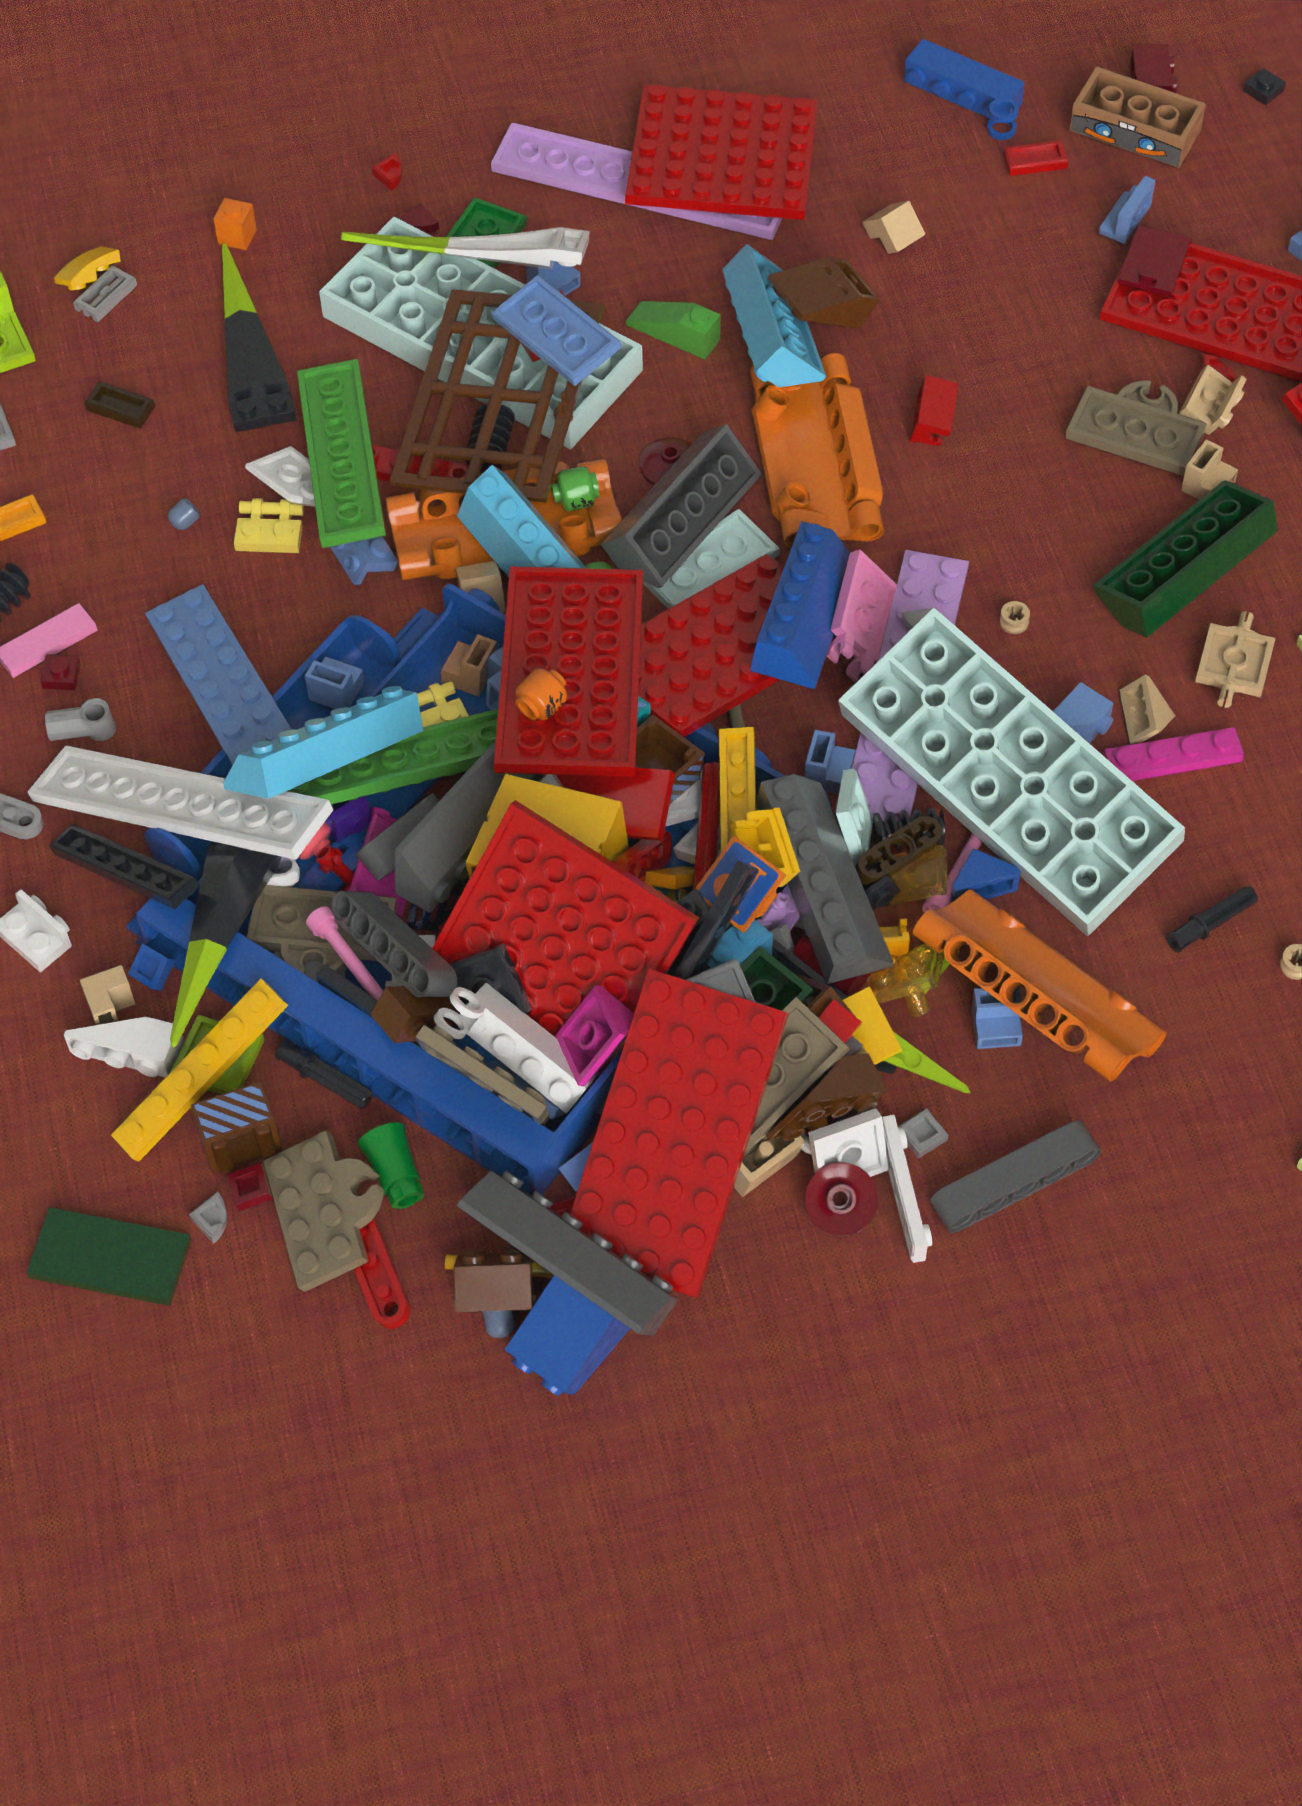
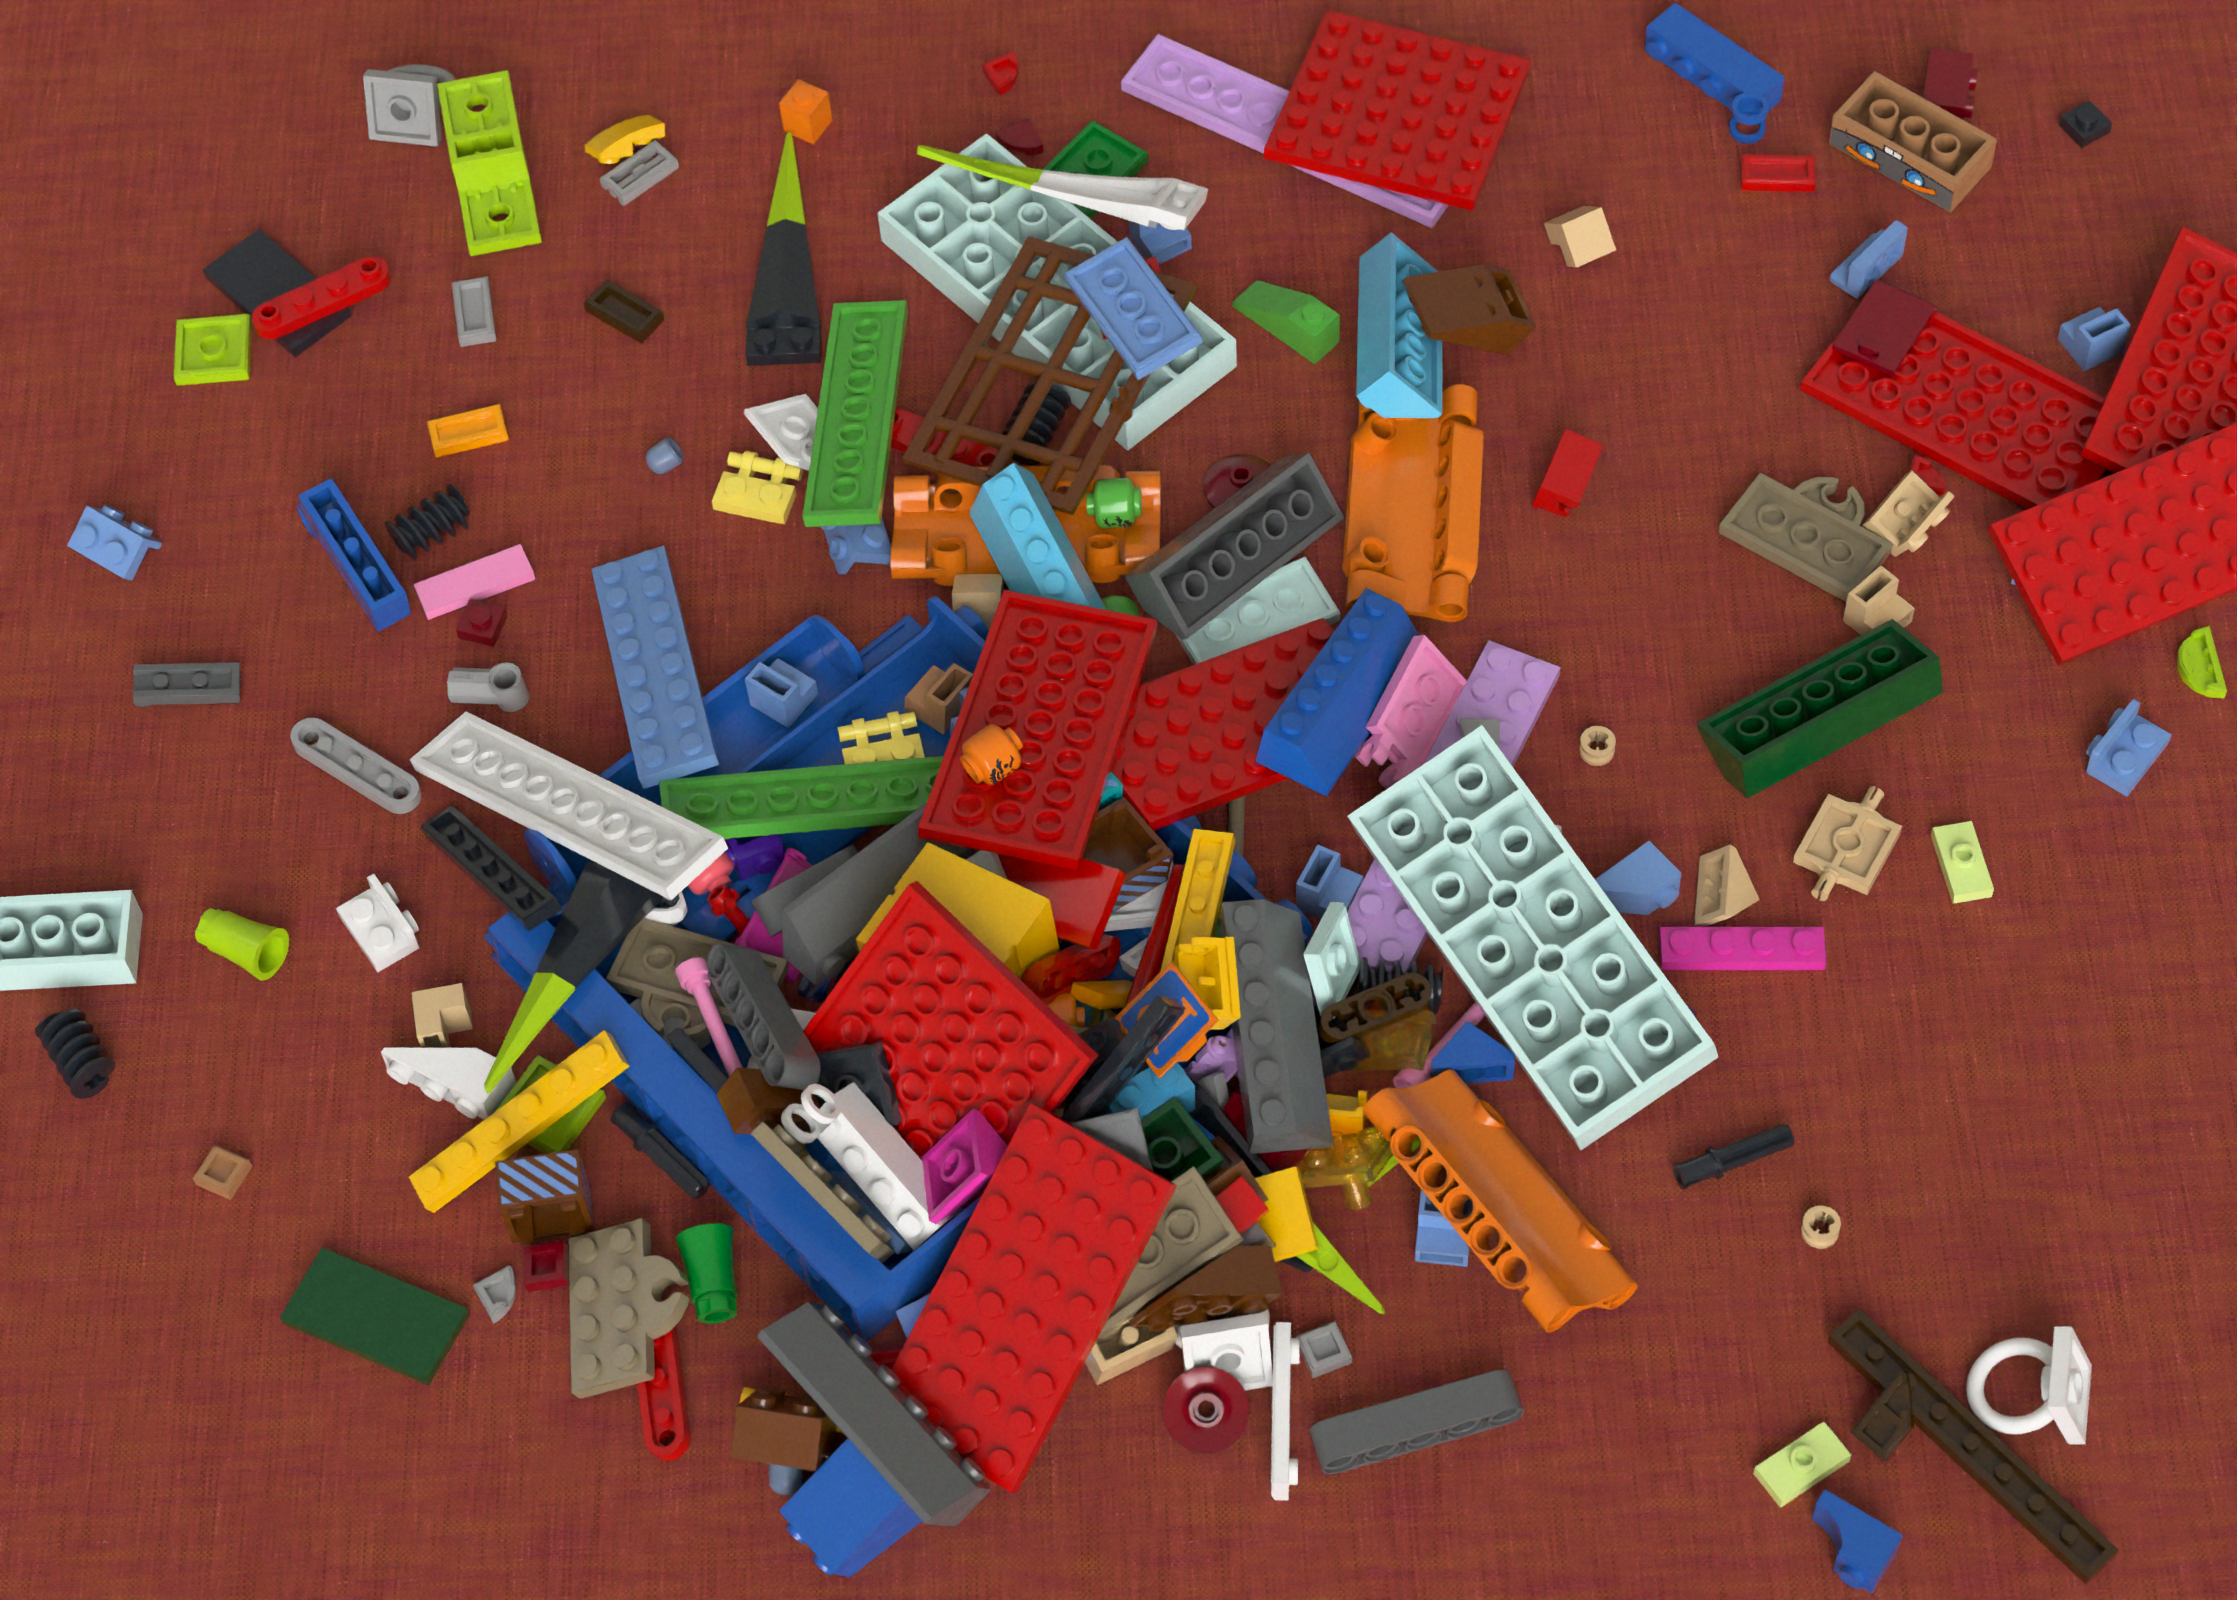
camera: 15 degrees right, 0 degrees up
(151, 966) = (499, 989): blue plate -> none
(326, 744) = (744, 767): medium azure slope -> none

